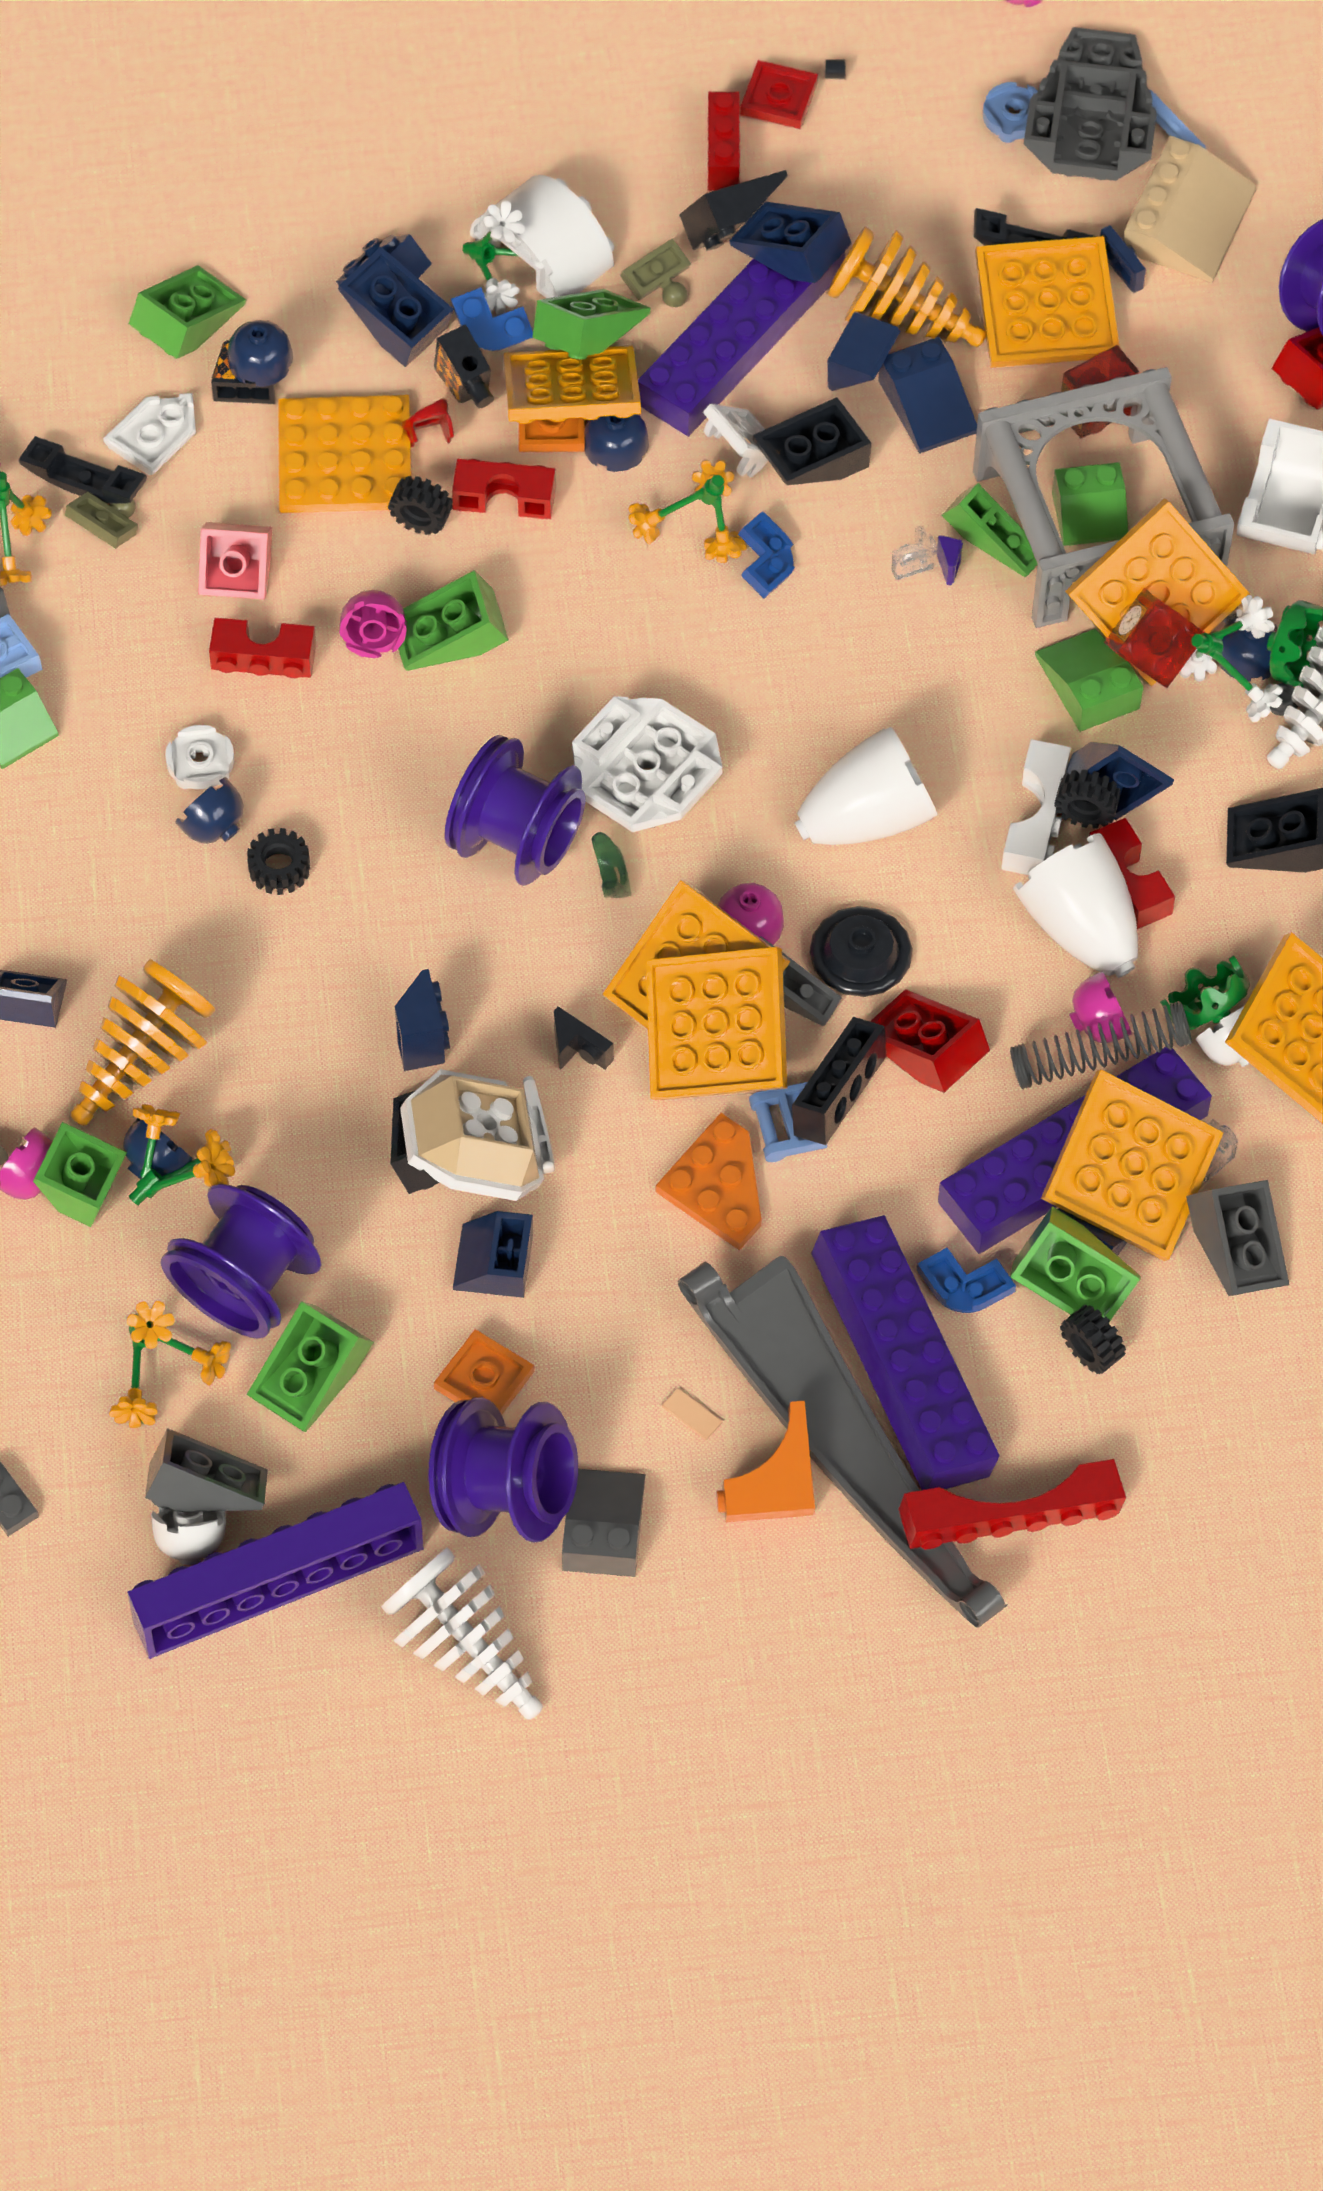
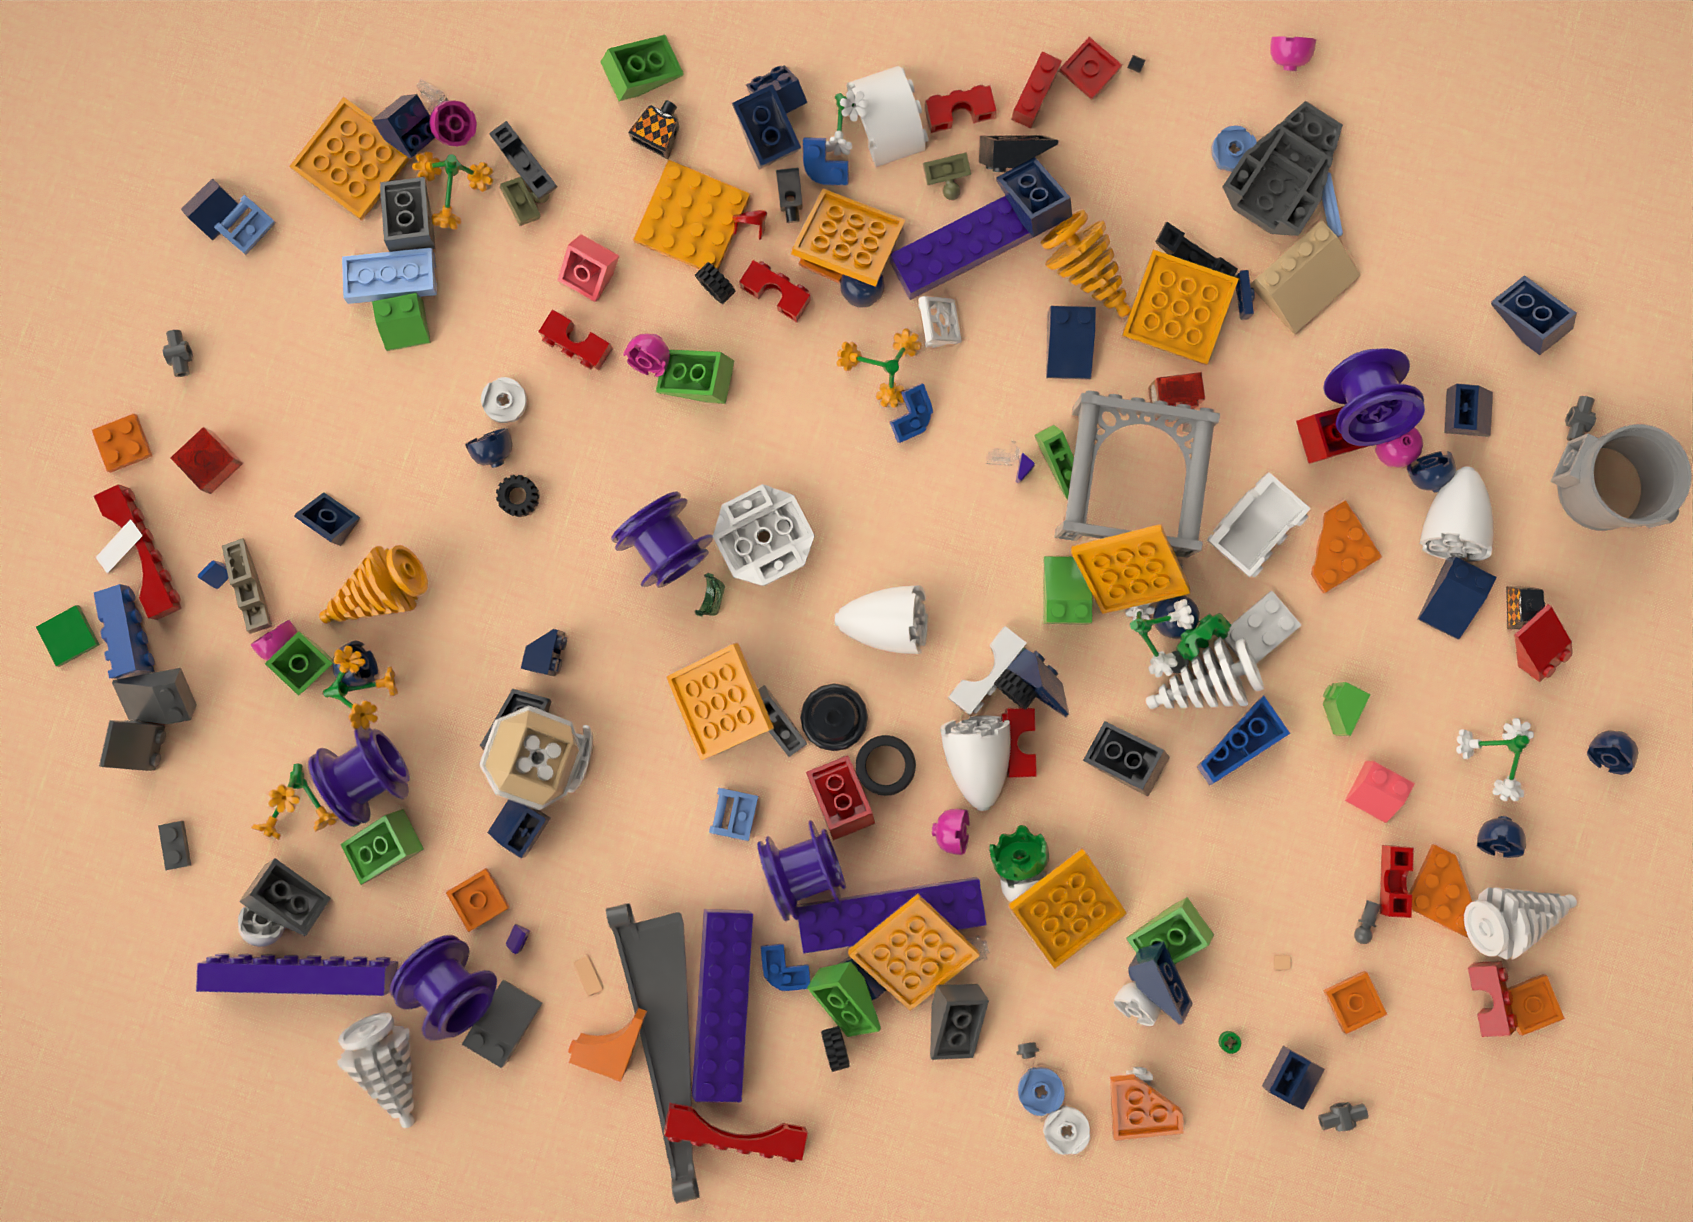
camera: 25 degrees right, 25 degrees up
(153, 431) = (583, 147): white tile -> none
(259, 353) = (664, 127): dark blue cylinder -> none
(567, 1400) = (517, 938): none -> dark purple slope
(575, 1037) = (632, 697): black slope -> none
(585, 321) = (883, 191): bright green slope -> none
(653, 183) = (977, 102): none -> red arch
(716, 1023) = (714, 742): light orange plate -> none
(717, 1182) = (674, 833): orange plate -> none
(755, 909) = (784, 674): dark pink cylinder -> none
(816, 445) = (977, 351): black slope -> none
(839, 1080) = (770, 811): black brick -> none
(860, 351) = (1041, 296): dark blue slope -> none
(922, 1122) = (801, 870): none -> dark purple wheel
(971, 943) = (903, 782): none -> black tyre
(1024, 1070) = (987, 874): dark grey piece -> none
(1090, 503) = (1130, 469): bright green slope -> none
(1154, 638) = (1114, 598): clear red brick -> none

